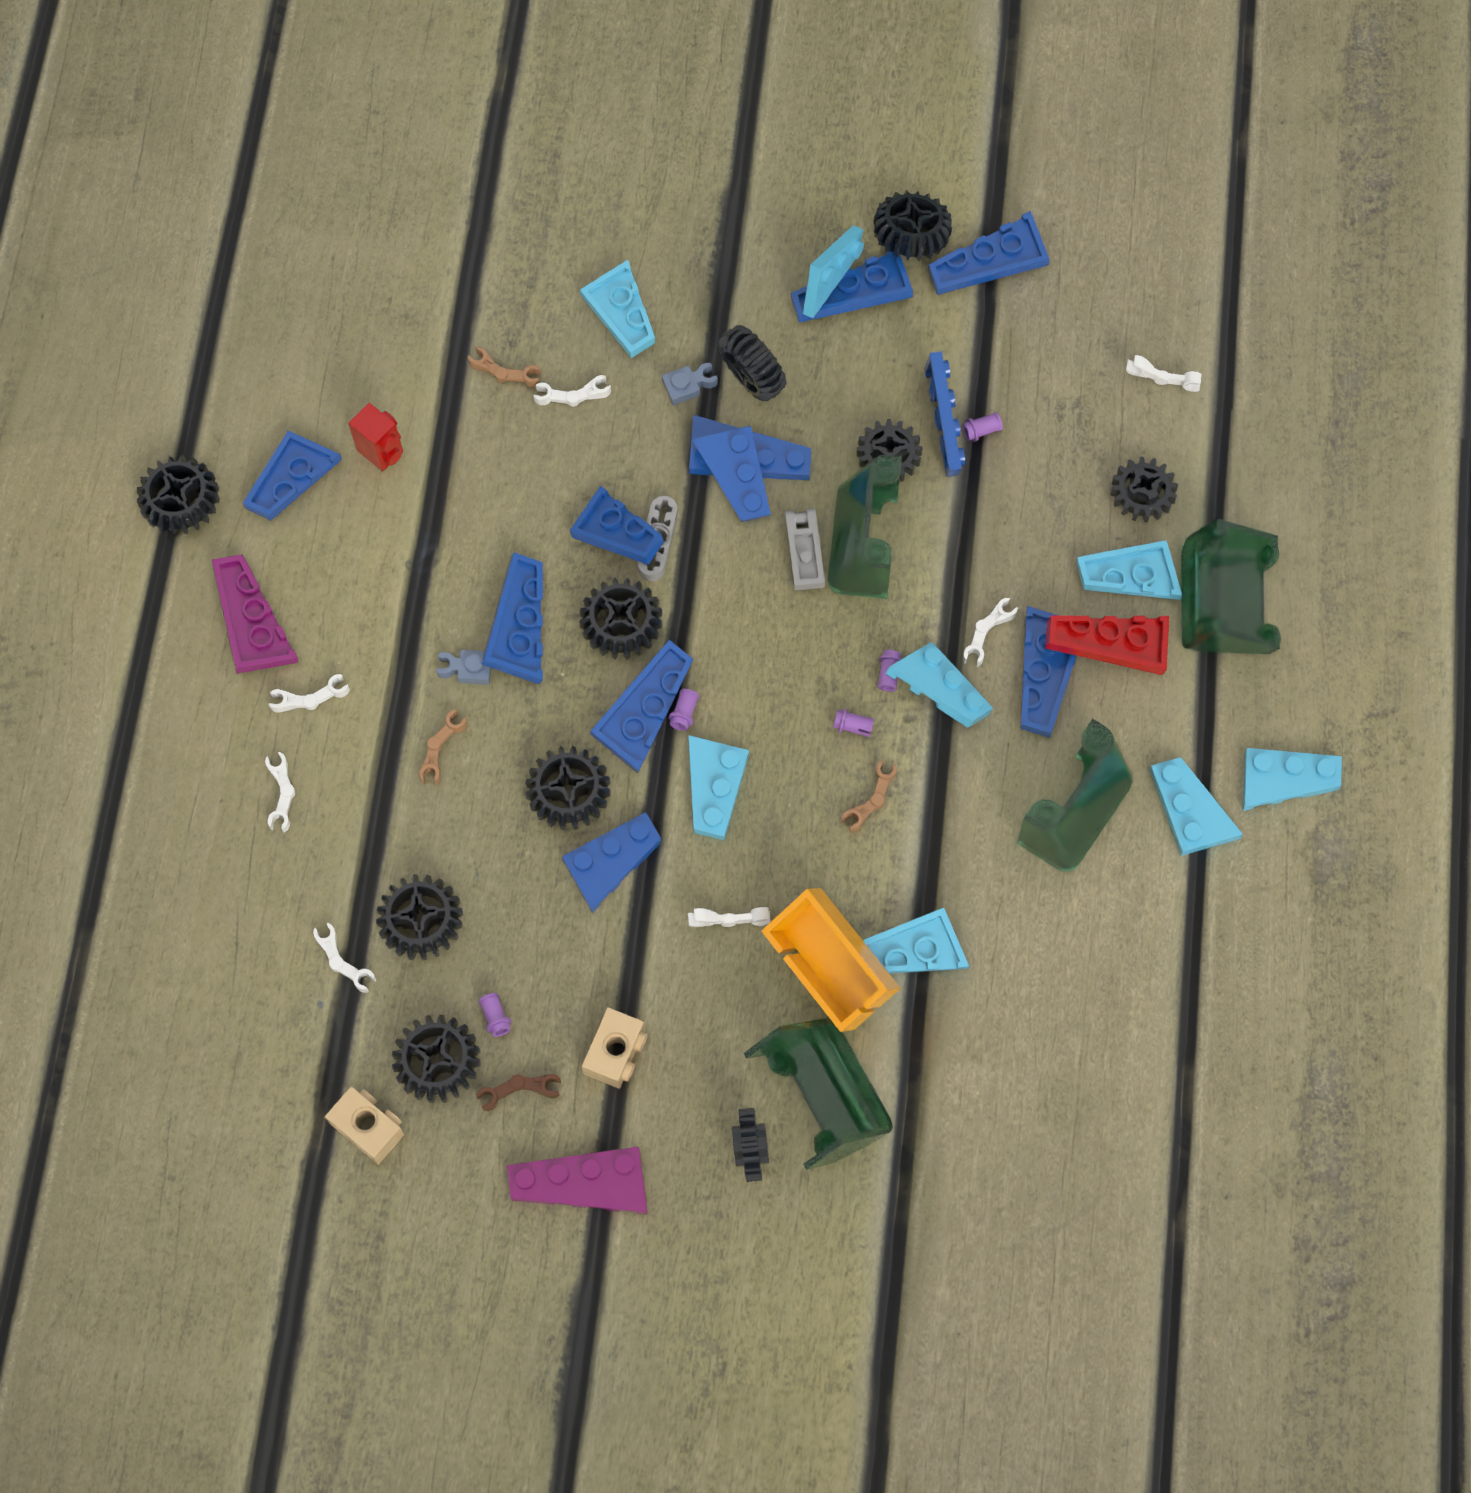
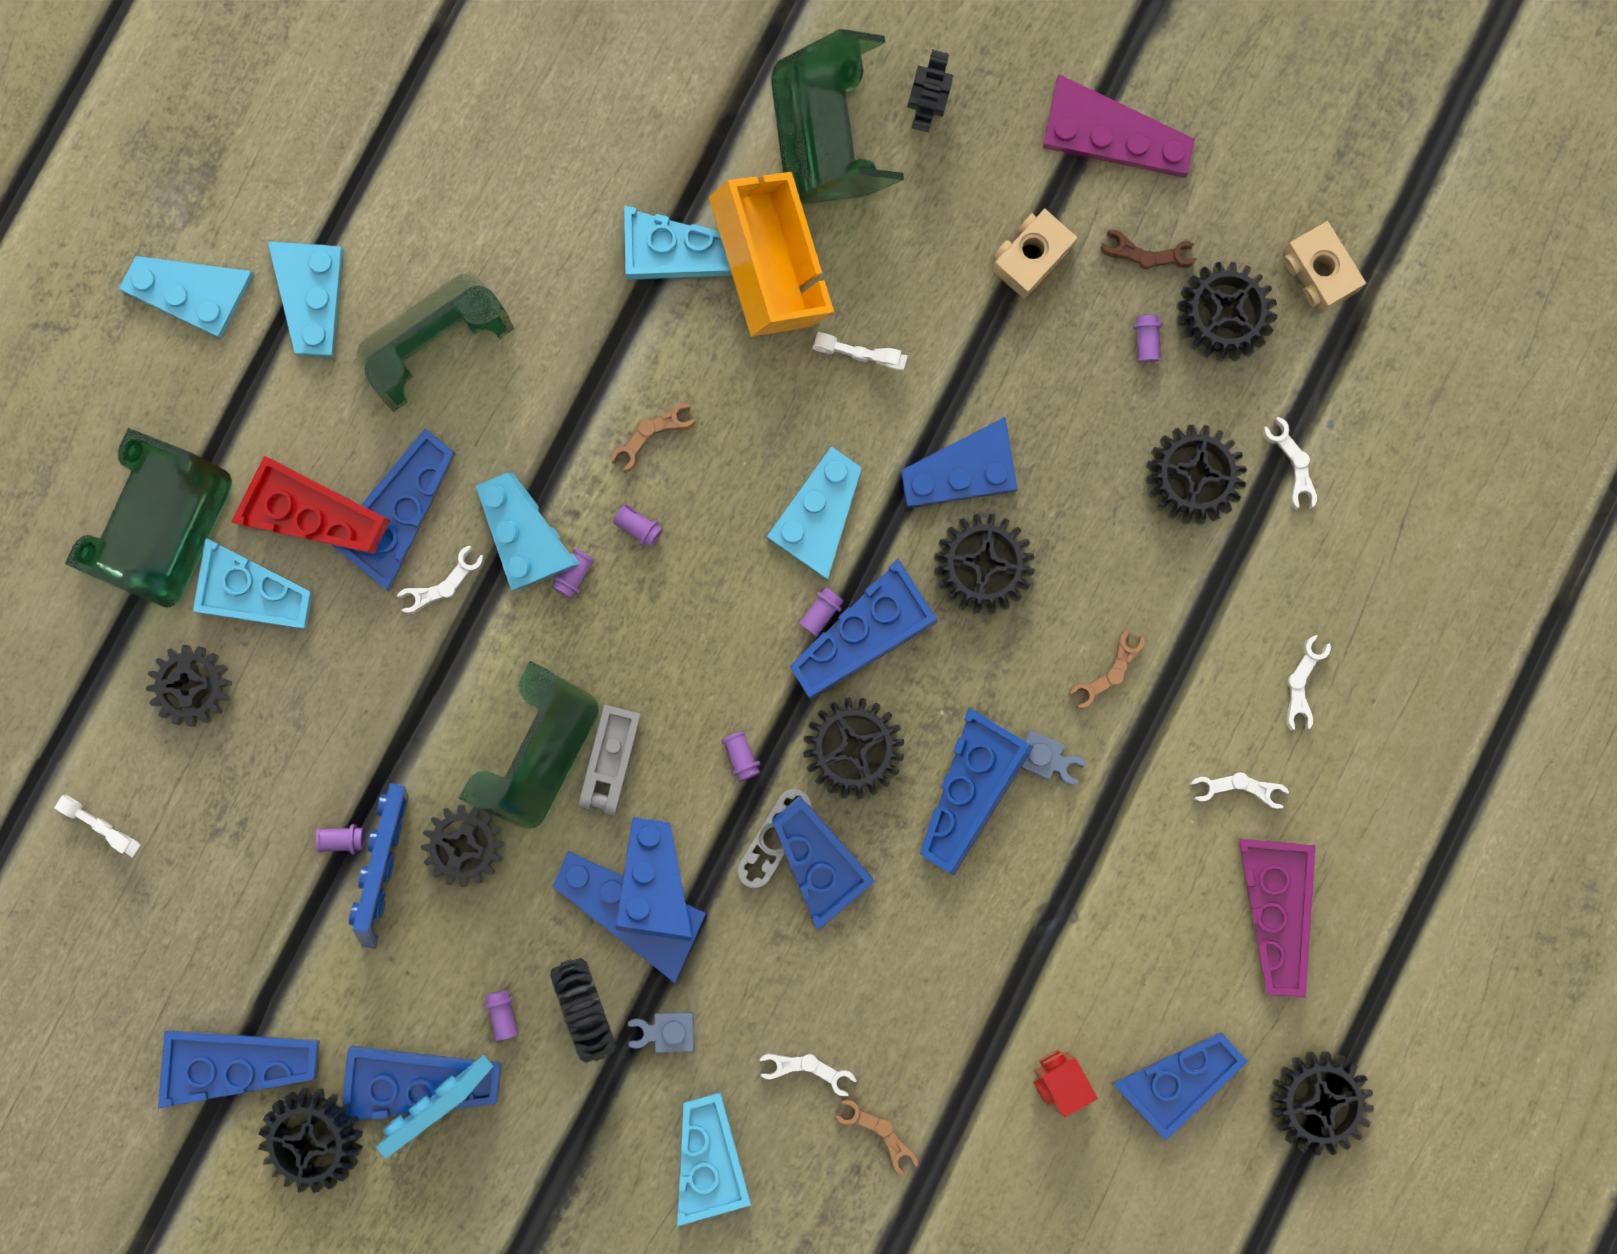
camera: 165 degrees left, 15 degrees up
(705, 585) = (741, 756): none -> medium lavender pin
(816, 357) = (501, 1014): none -> medium lavender pin

